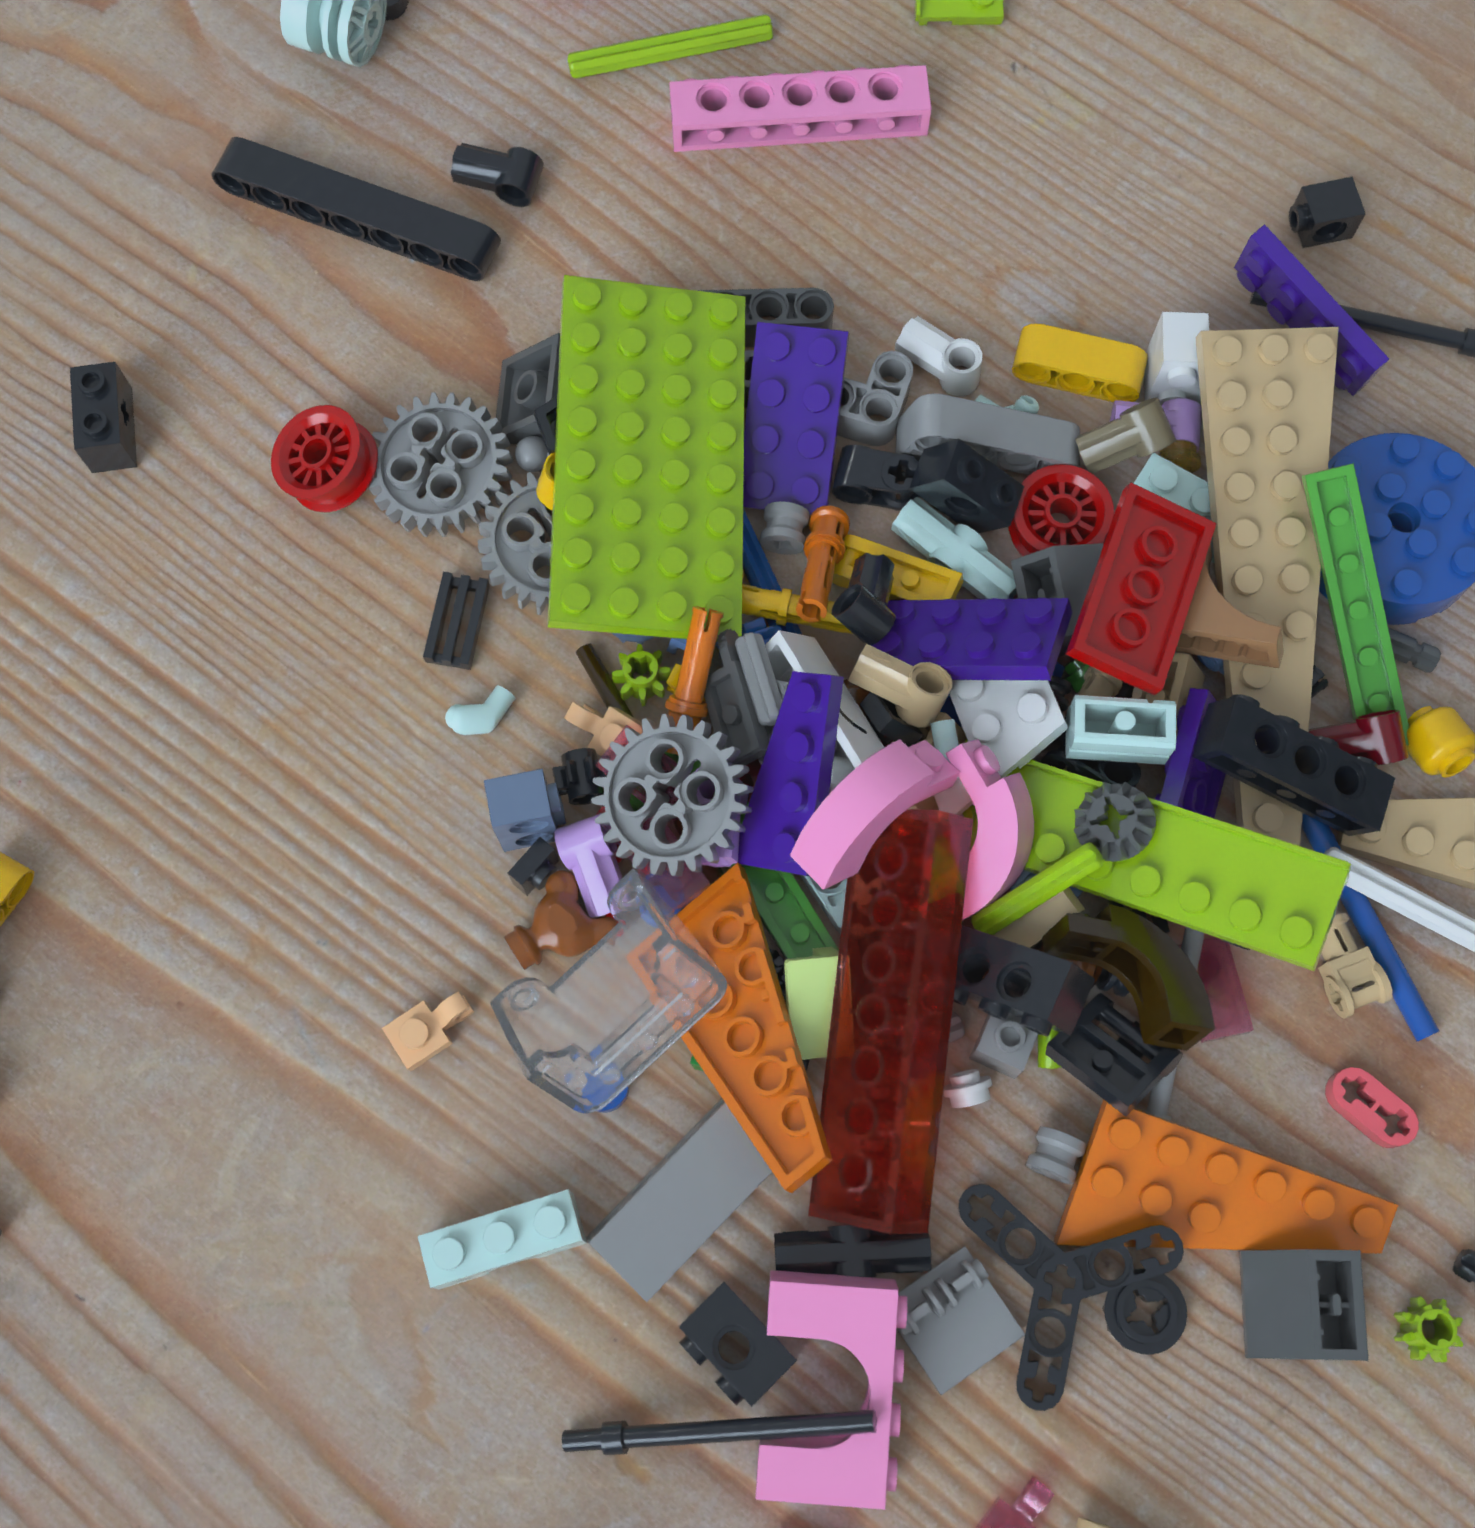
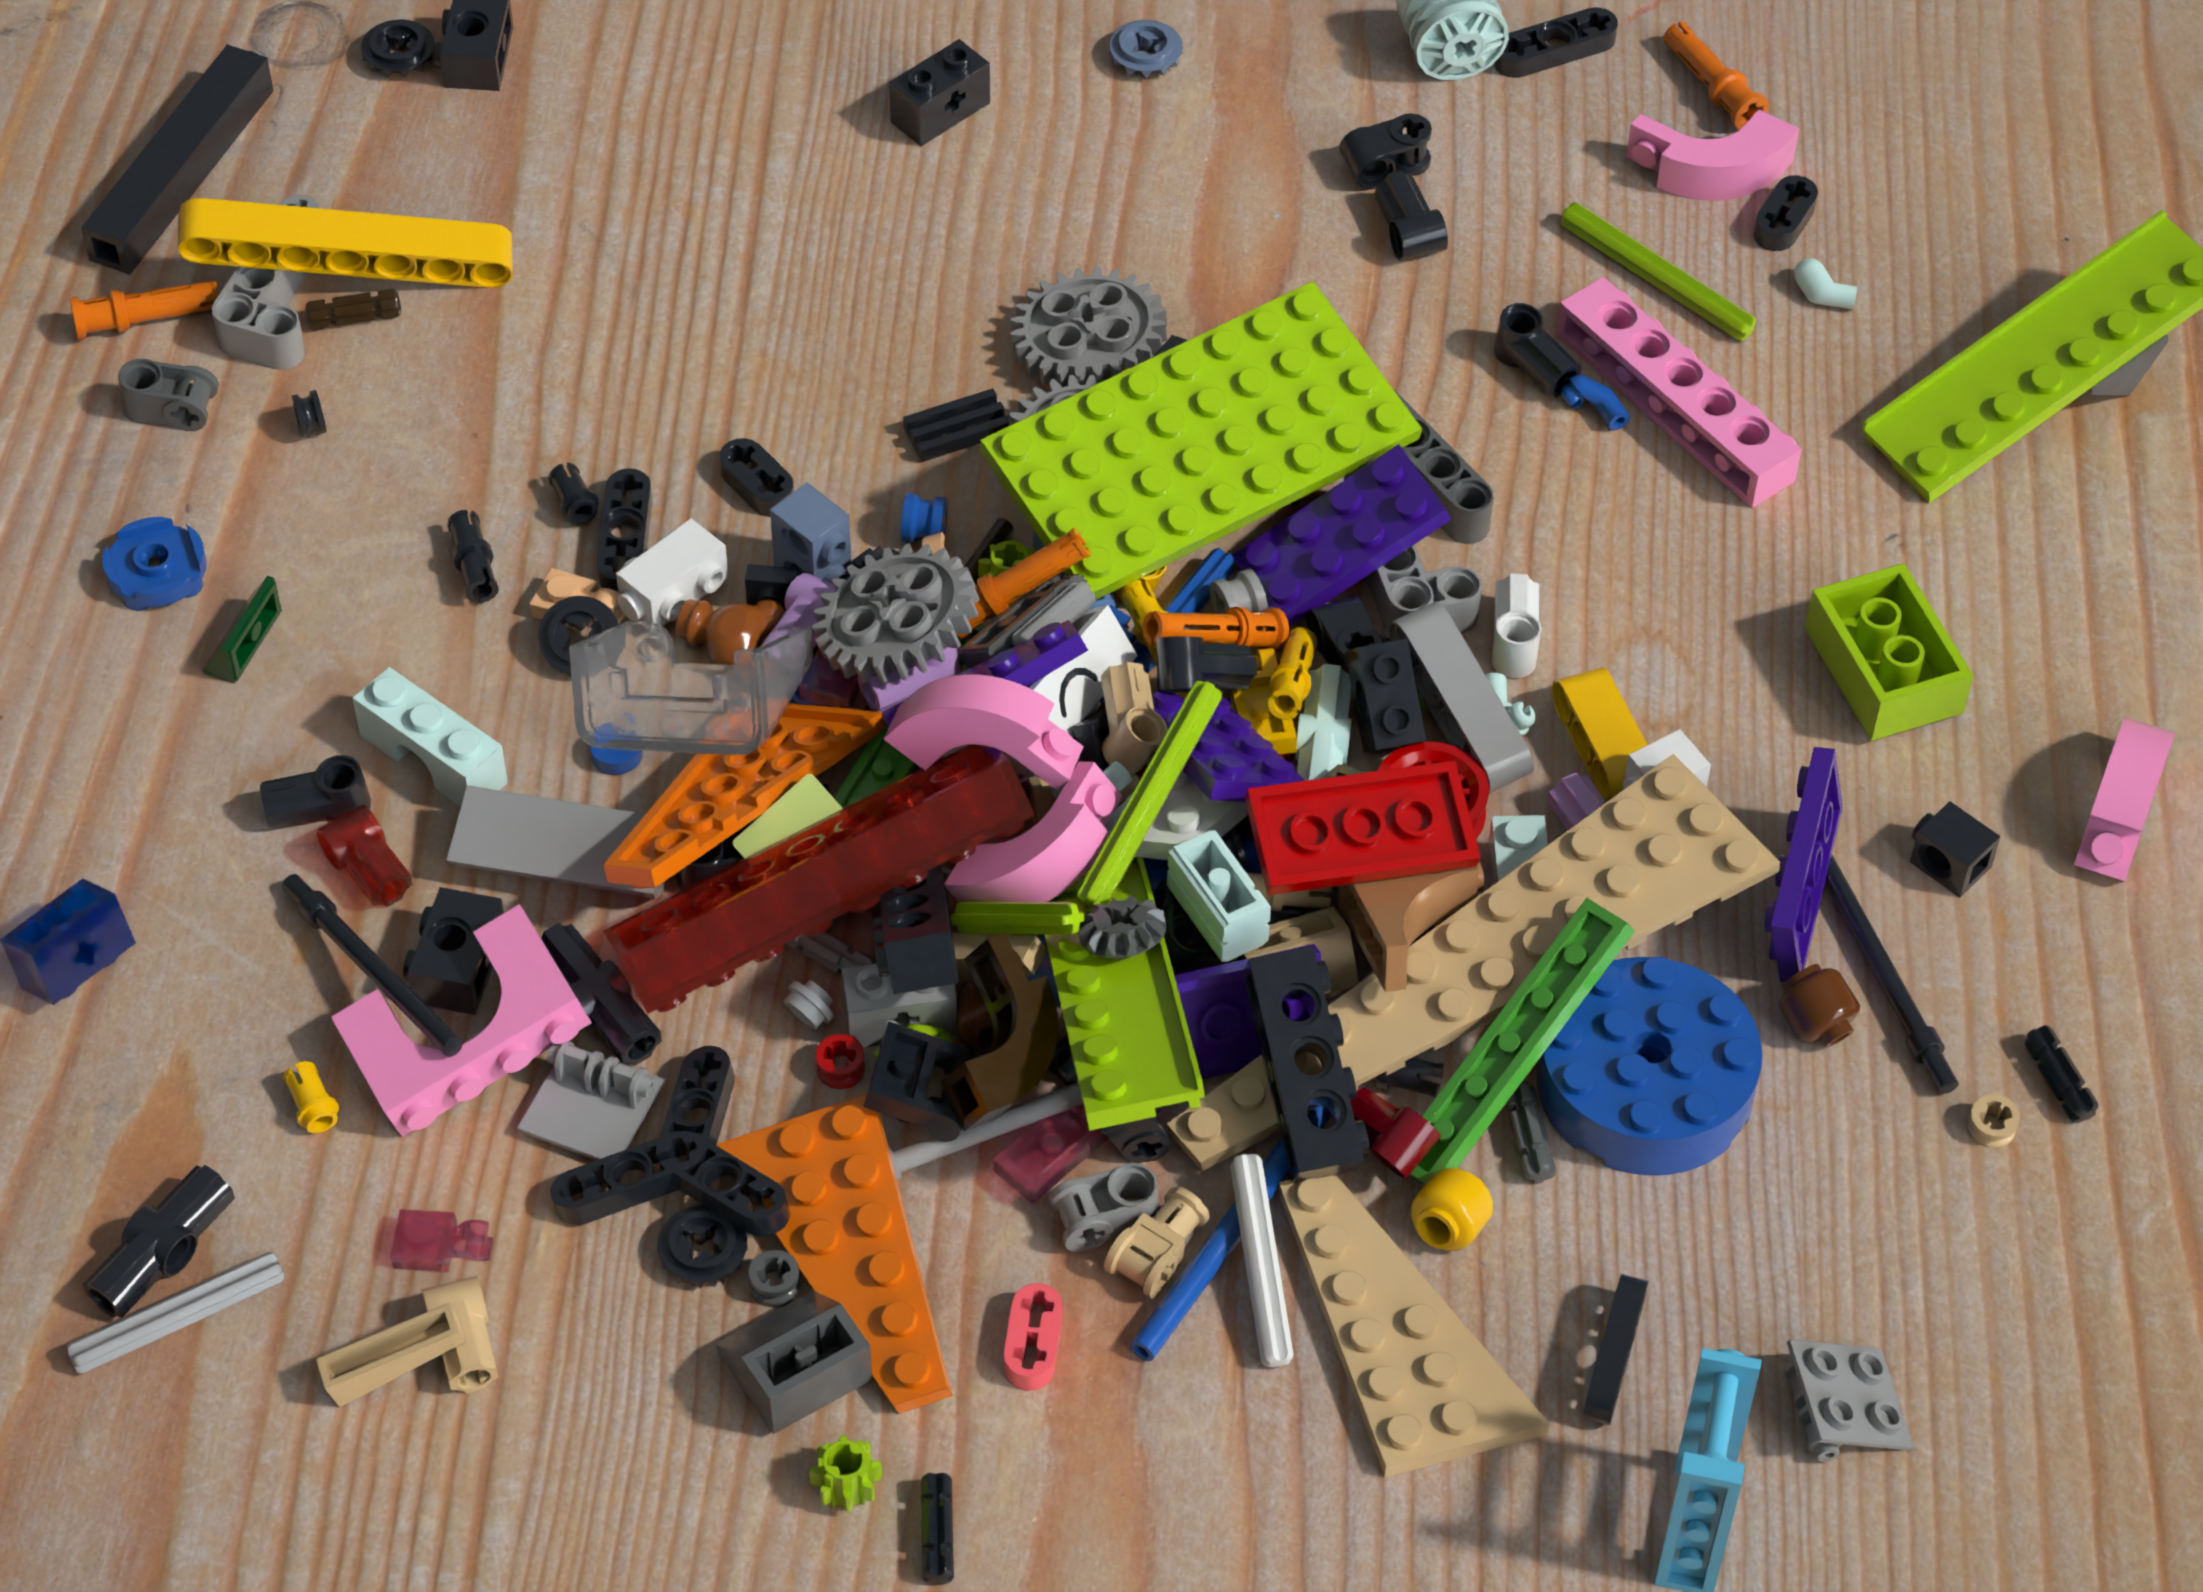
camera: 55 degrees right, 20 degrees down
(61, 1134) = (309, 413): none -> black bush
(104, 1383) = (161, 585): none -> blue plate
(162, 228) = (1150, 36): none -> sand blue gear
(264, 1331) = (245, 633): none -> dark green slope
(313, 963) = (577, 501): none -> black pin
(321, 1085) = (472, 556): none -> black pin
(324, 458) = (1025, 248): red wheel -> none
(356, 208) = (1285, 147): black beam -> none
(361, 913) = (617, 514): none -> black beam
(398, 795) = (763, 471): none -> black beam
(419, 142) = (1384, 149): none -> black piece
(470, 954) = (675, 569): none -> white brick
(480, 717) = (880, 486): light aqua arm -> none
(490, 1375) = (329, 791): none -> black piece
(492, 1063) = (577, 613): none -> black gear
(543, 706) = (923, 517): none -> blue wheel
(574, 1364) = (360, 848): none -> clear red piece
(690, 174) = (1527, 345): none -> black piece
(762, 161) = (1600, 396): none -> blue arm
(910, 543) = (1292, 674): none -> yellow pin
(1007, 720) = (1149, 795): none -> lime axle
(1026, 1081) = (840, 1046): none -> red bush
(1056, 1155) = (795, 1095): light grey wheel -> none
(1137, 432) = (1557, 792): dark tan piece -> none
(1140, 135) = (1888, 651): none -> lime brick
(1218, 1263) = (762, 1290): none -> dark grey bush
(1293, 993) = (1102, 1204): none -> light grey piece
(1364, 68) = (2124, 798): none -> bright pink arch
(1408, 386) = (1819, 1005): none -> reddish brown head

